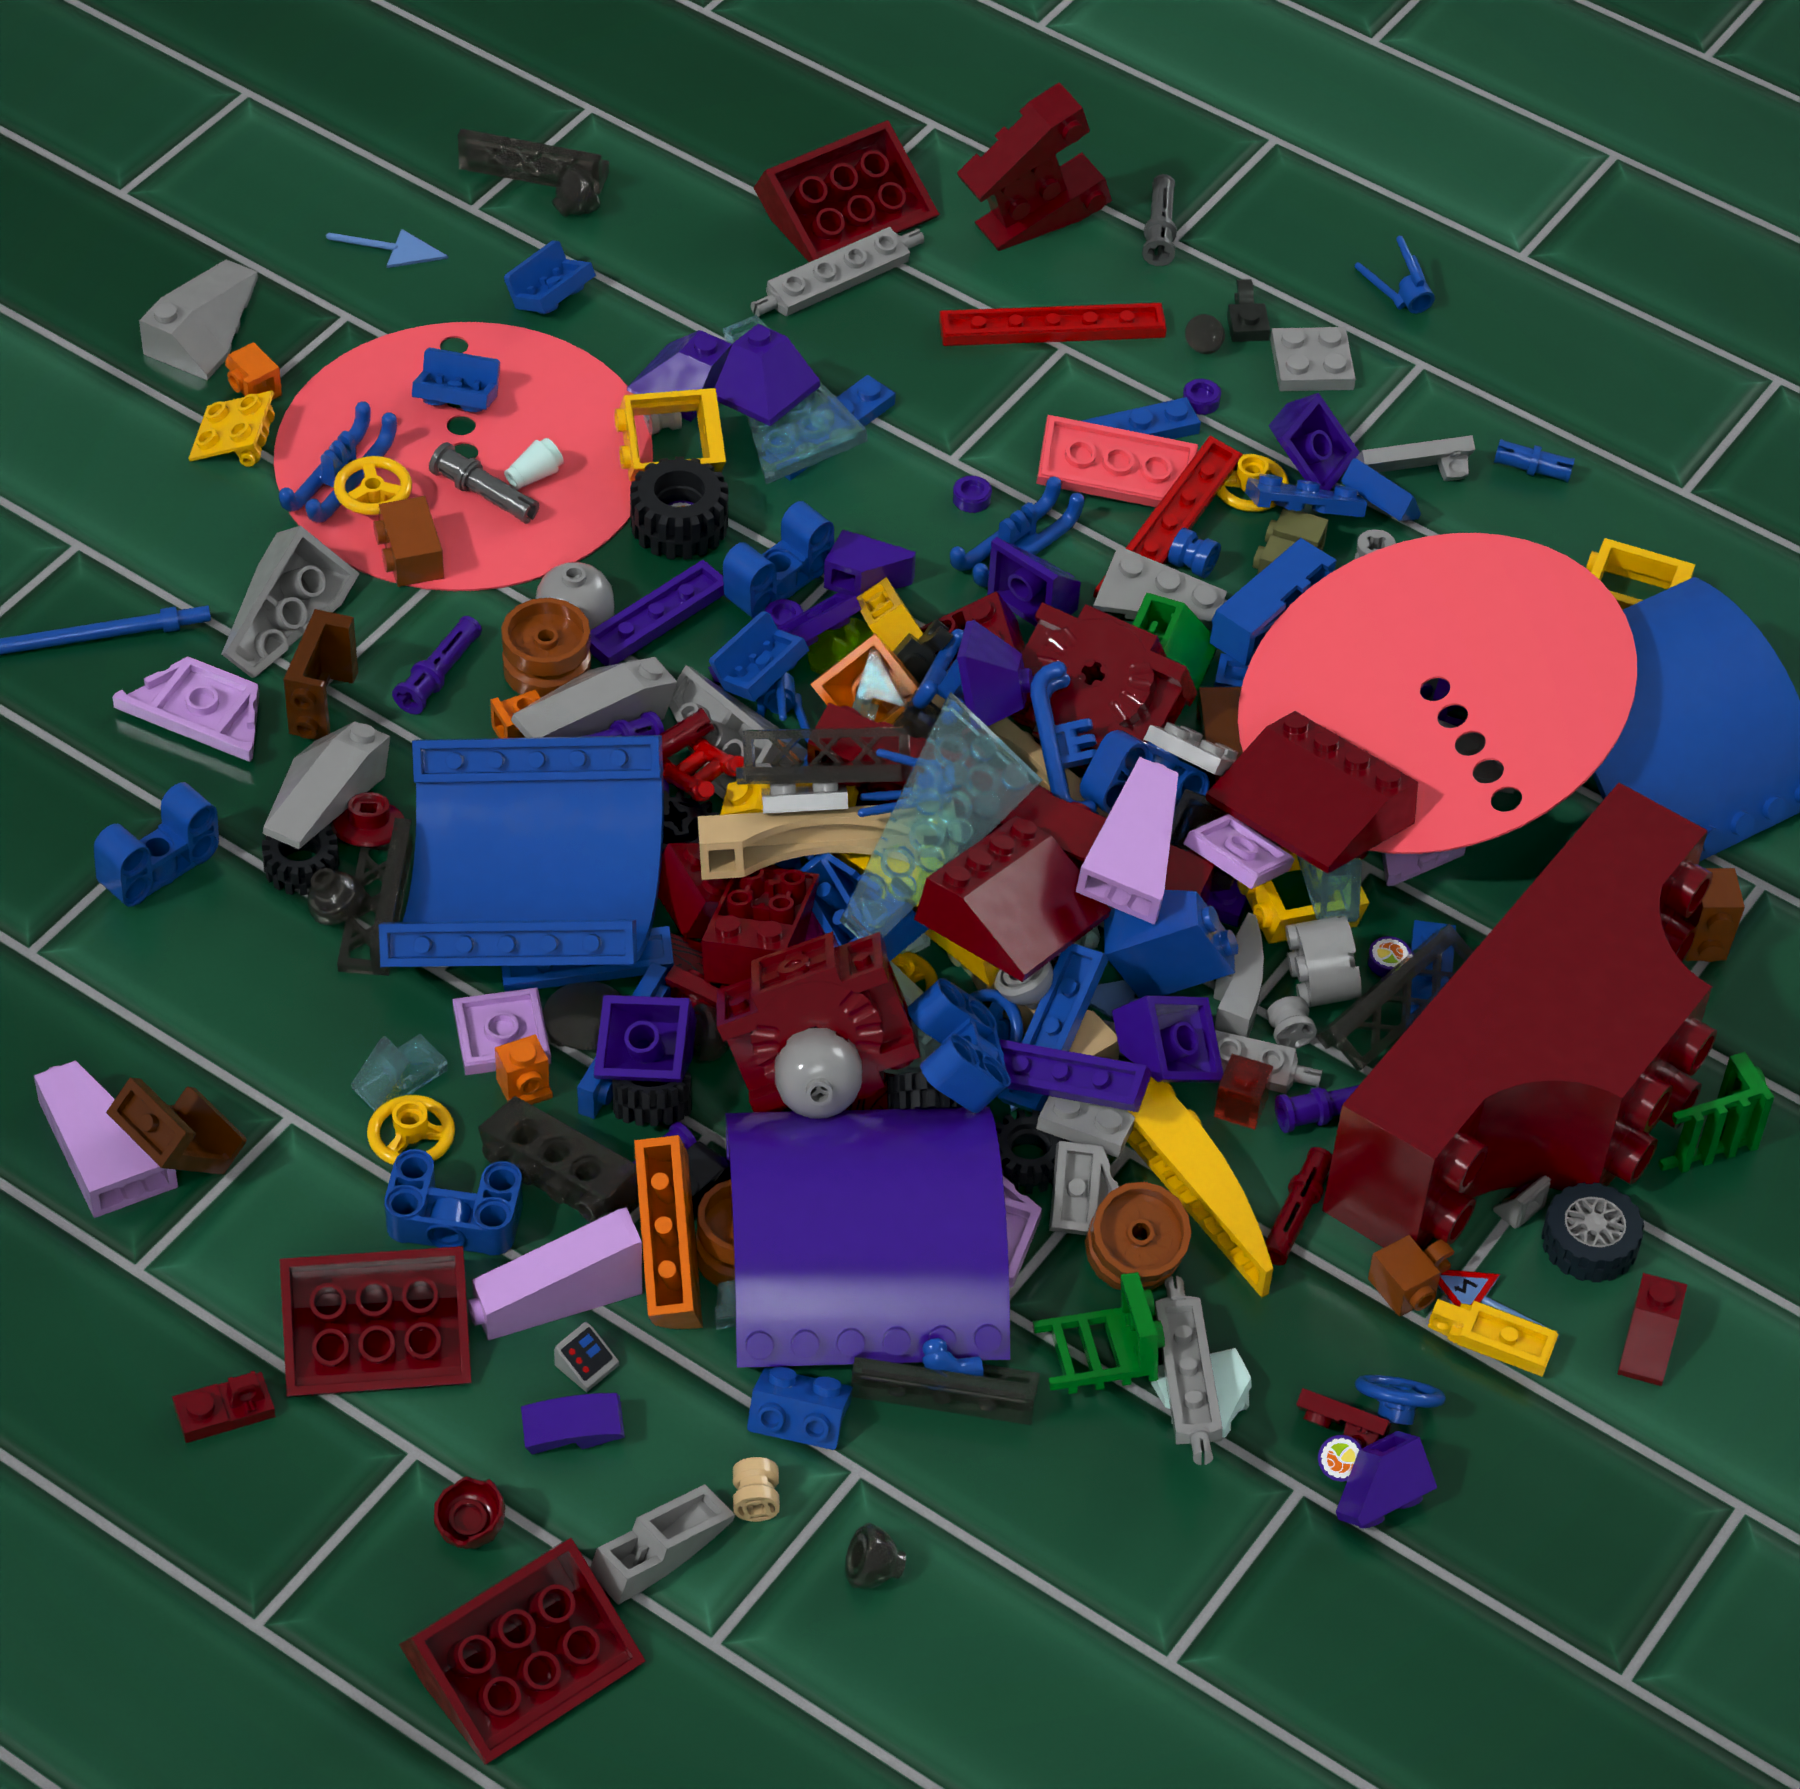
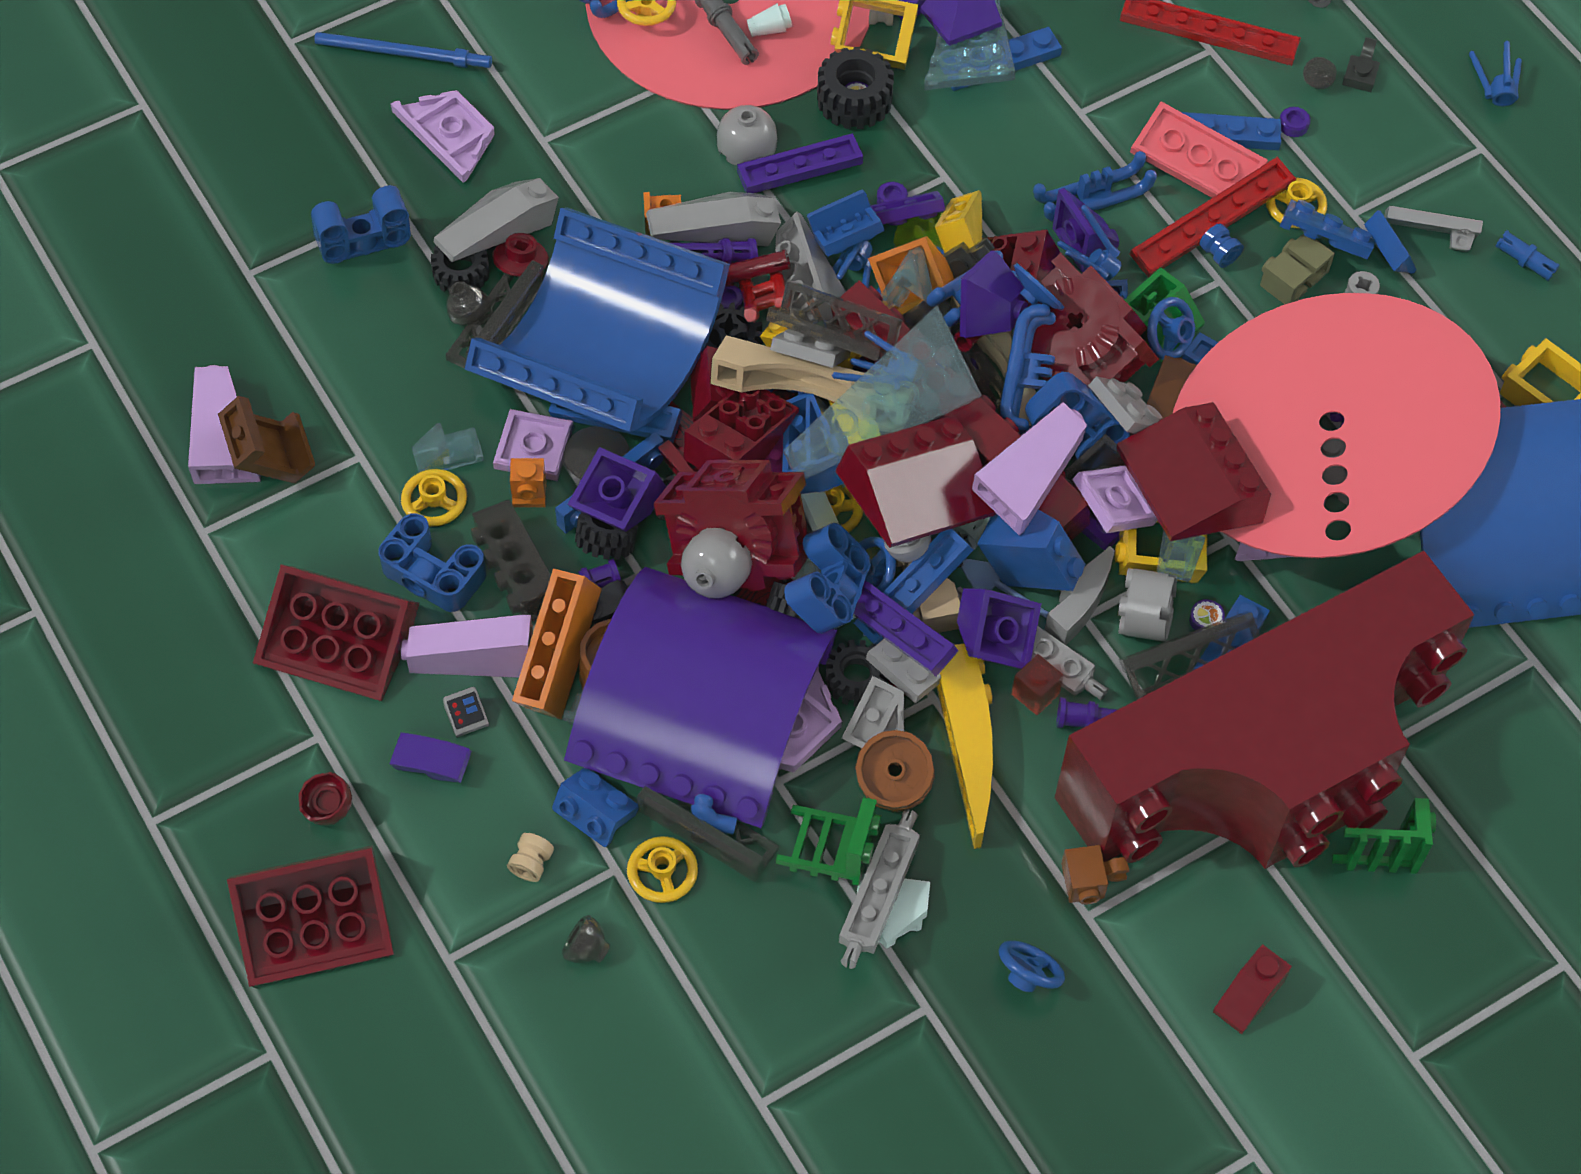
camera: 25 degrees right, 10 degrees up
(223, 1406) = (207, 655): dark red hinge -> none
(285, 589) = (548, 67): light grey wedge -> none
(323, 654) = (531, 128): reddish brown panel -> none
(409, 541) = (652, 52): dark orange brick -> none
(429, 674) = (617, 157): dark purple pin -> none
(544, 645) = (703, 163): dark orange wheel -> none
(659, 1543) = (445, 871): light grey slope -> none
(758, 579) = (905, 160): blue beam -> none
(862, 562) = (966, 172): dark purple slope -> none
(916, 1427) = (659, 856): none -> yellow piece
(972, 494) = (1080, 144): dark purple tile -> none
(1039, 646) = (1034, 290): none -> blue dish
(1070, 602) = (1101, 260): none -> blue plant
(1135, 575) = (1167, 251): light grey wing -> none
(1200, 656) = (1175, 330): none -> blue piece
(1256, 606) = (1242, 303): blue wedge -> none
(1291, 1022) = (1102, 643): light grey wheel -> none
(1312, 359) = (1396, 118): light grey plate -> none
(1314, 440) = (1357, 186): dark purple slope -> none
(1314, 1169) = (1005, 813): dark red pin -> none
(1338, 1456) = (964, 998): tile -> none
(1358, 1423) = (990, 979): dark red hinge -> none
(1385, 1478) = (984, 1028): dark purple slope -> none
(1473, 1286) = (1131, 902): piece -> none
(1495, 1334) = (1132, 947): yellow hinge -> none
(1523, 1201) = (1208, 849): light grey slope -> none
(1592, 1232) = (1248, 893): black wheel -> none
(1717, 917) = (1471, 674): dark orange brick -> none

